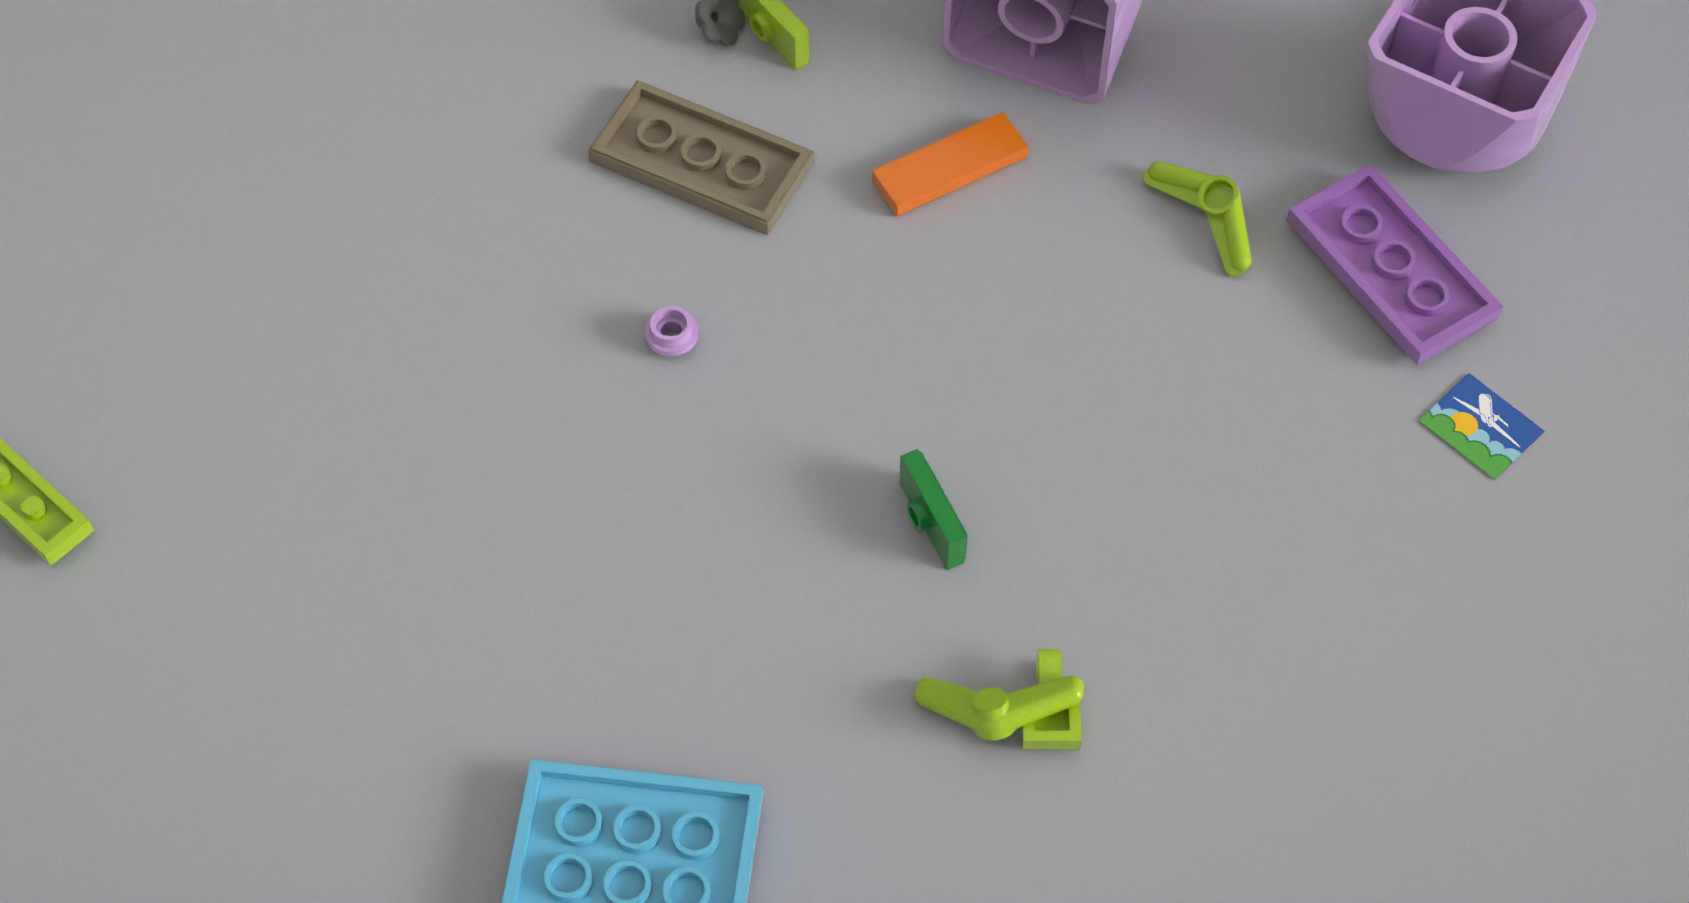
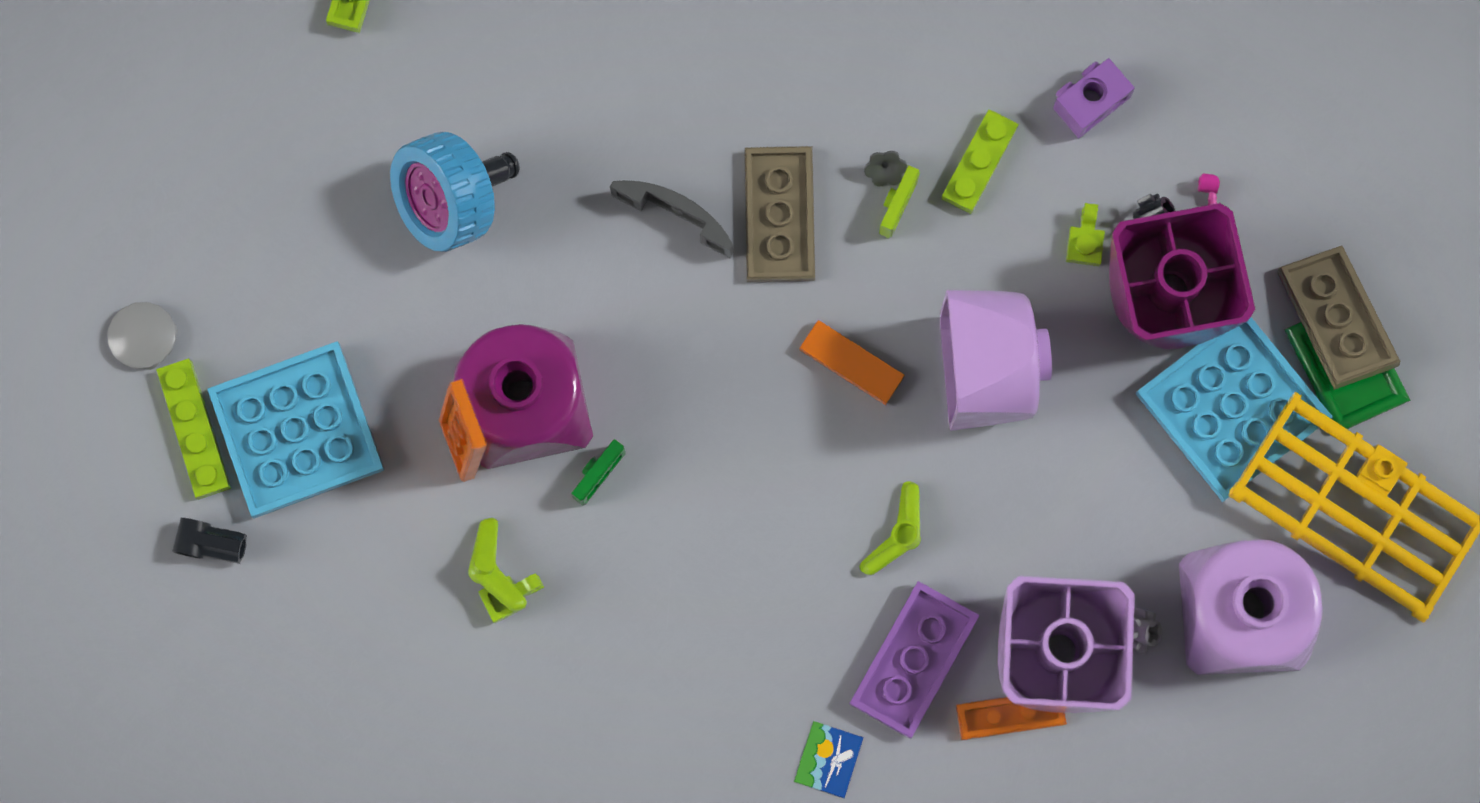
camera: 65 degrees right, 20 degrees up
(411, 491) = (447, 189): none -> dark azure wheel
(667, 320) = (644, 255): lavender plate -> none
(681, 228) = (637, 193): none -> dark grey slope
(764, 544) = (550, 418): none -> magenta piece
(786, 611) = (462, 431): none -> orange tile
(1515, 207) = (1002, 717): none -> orange tile

